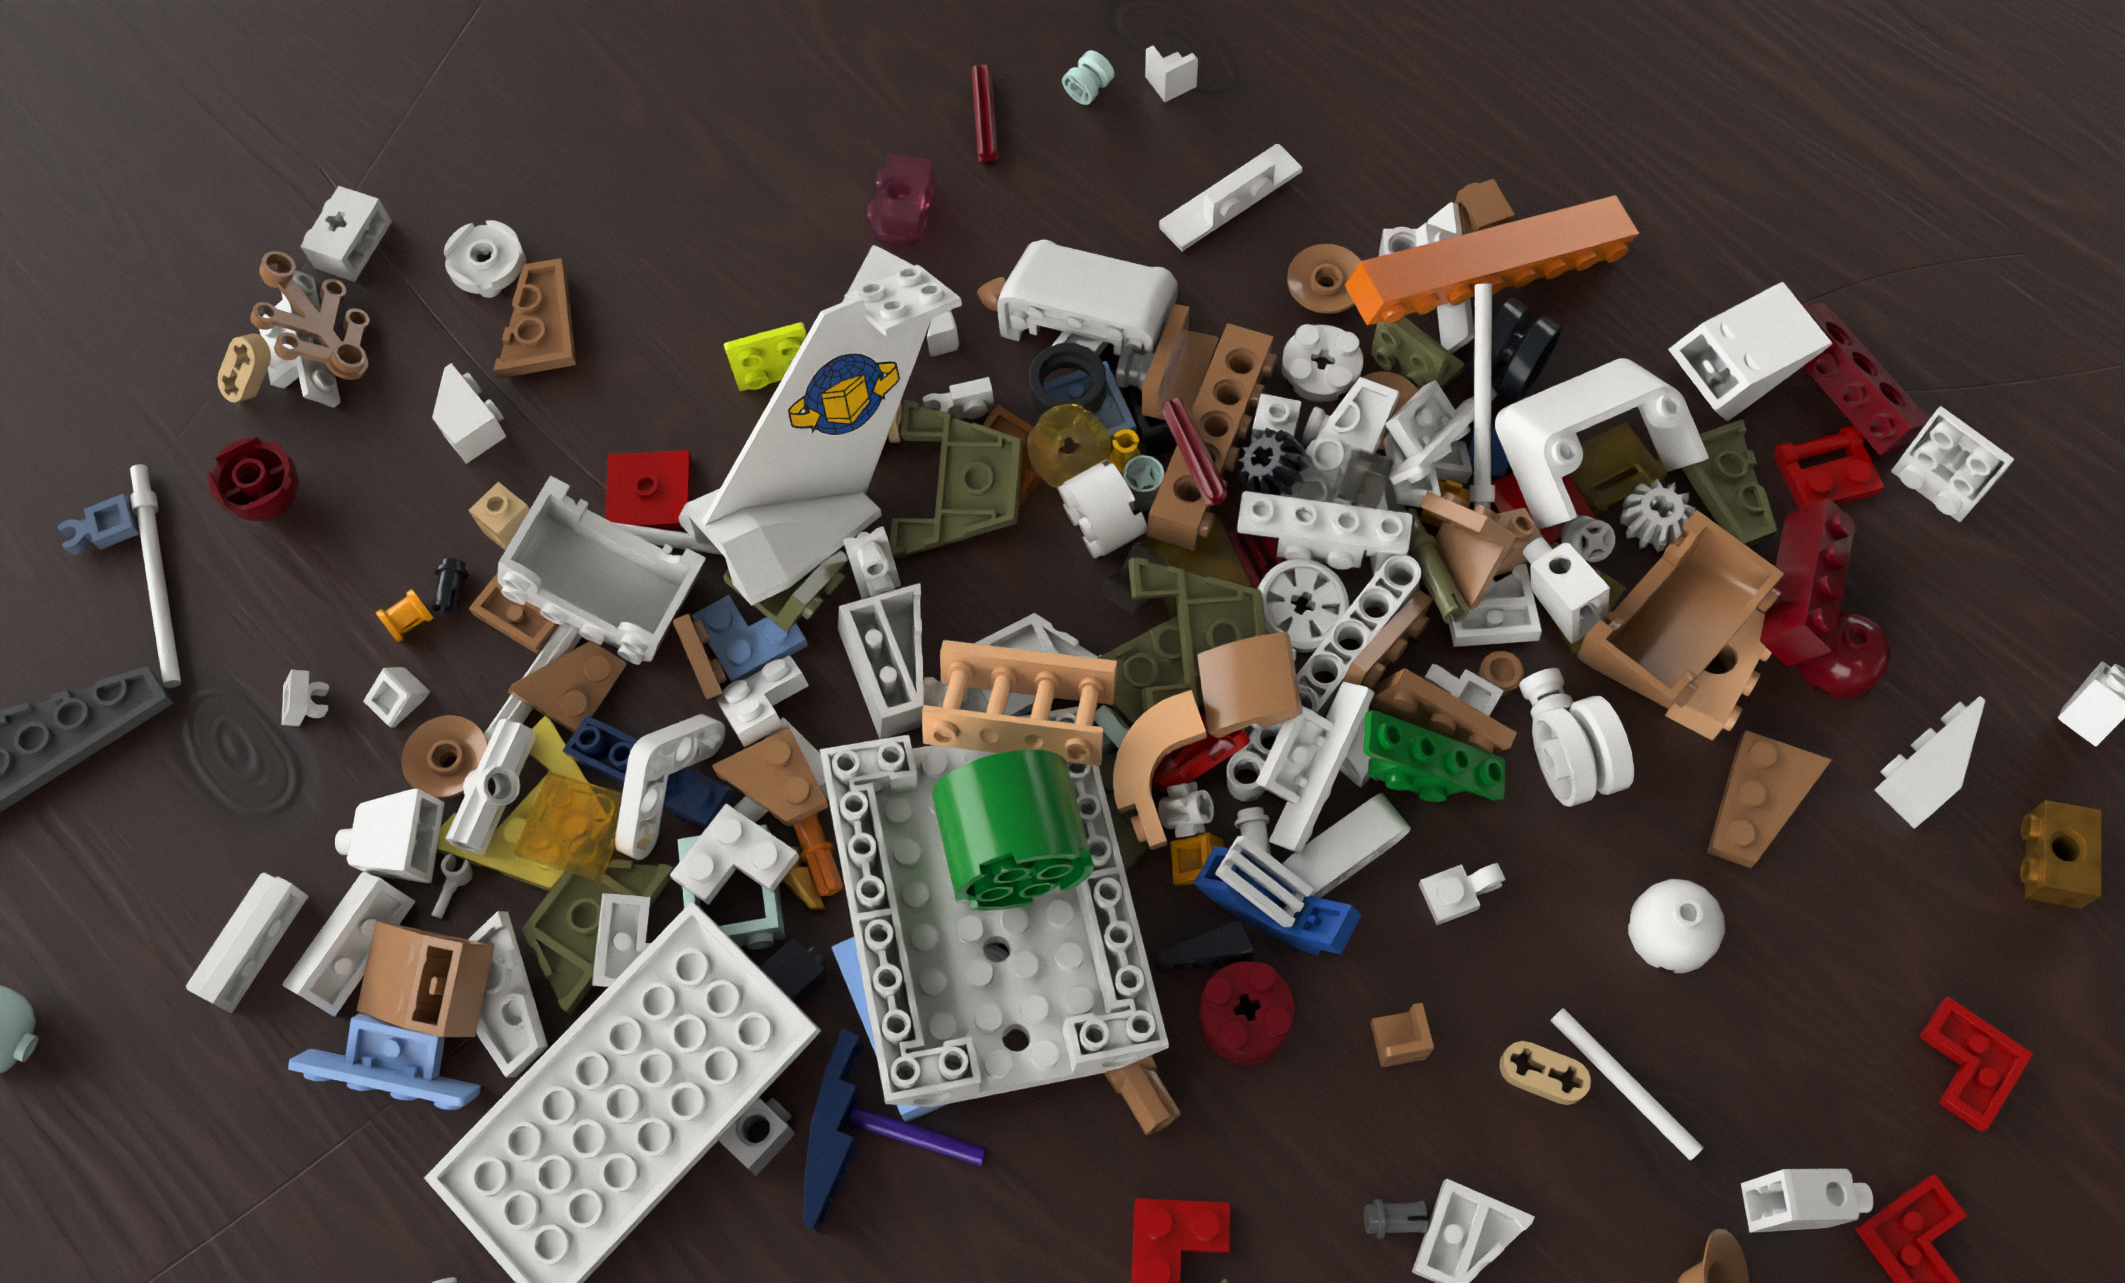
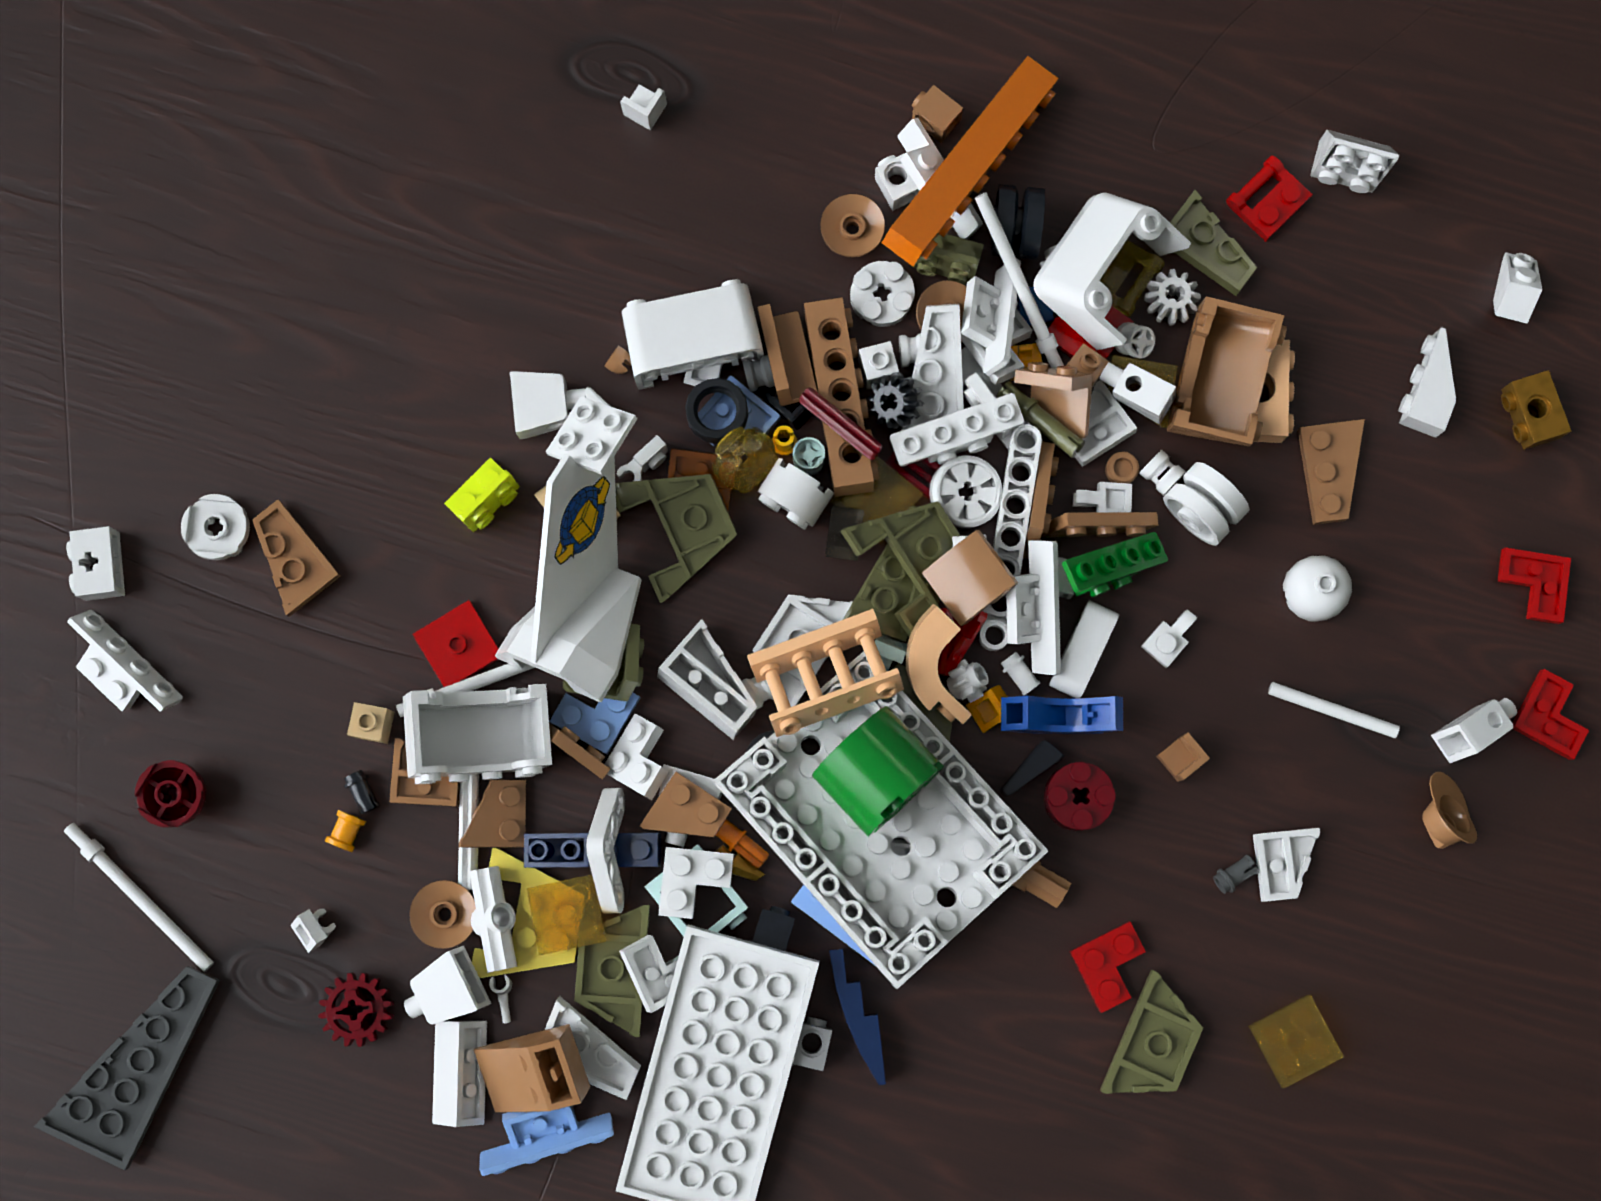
camera: 30 degrees left, 15 degrees up
(104, 525) = (76, 881): sand blue plate -> none
(244, 367) = (105, 714): tan beam -> none
(247, 941) = (388, 1110): white panel -> none
(277, 272) = (129, 650): medium nougat plant -> none
(285, 826) = (357, 1022): none -> dark red gear
(395, 695) = (375, 888): white slope -> none
(463, 416) = (288, 662): white slope -> none
(872, 563) = (658, 620): white hips -> none
(903, 219) = (502, 299): clear pink brick -> none
(917, 1136) = (912, 987): dark purple bar -> none
(984, 114) = (522, 211): dark red axle -> none
(1090, 75) = (584, 142): light aqua wheel -> none
(1229, 197) = (745, 189): white bracket -> none
(1275, 868) = (1072, 710): white tile -> none
(1362, 477) = (965, 381): clear smoke panel -> none
(1548, 1062) = (1280, 723): tan beam -> none
(1749, 349) = (1179, 138): white slope -> none
(1814, 565) = (1297, 295): dark red brick -> none
(1857, 658) = (1338, 337): dark red cylinder -> none
(1863, 387) = (1256, 121): dark red brick -> none

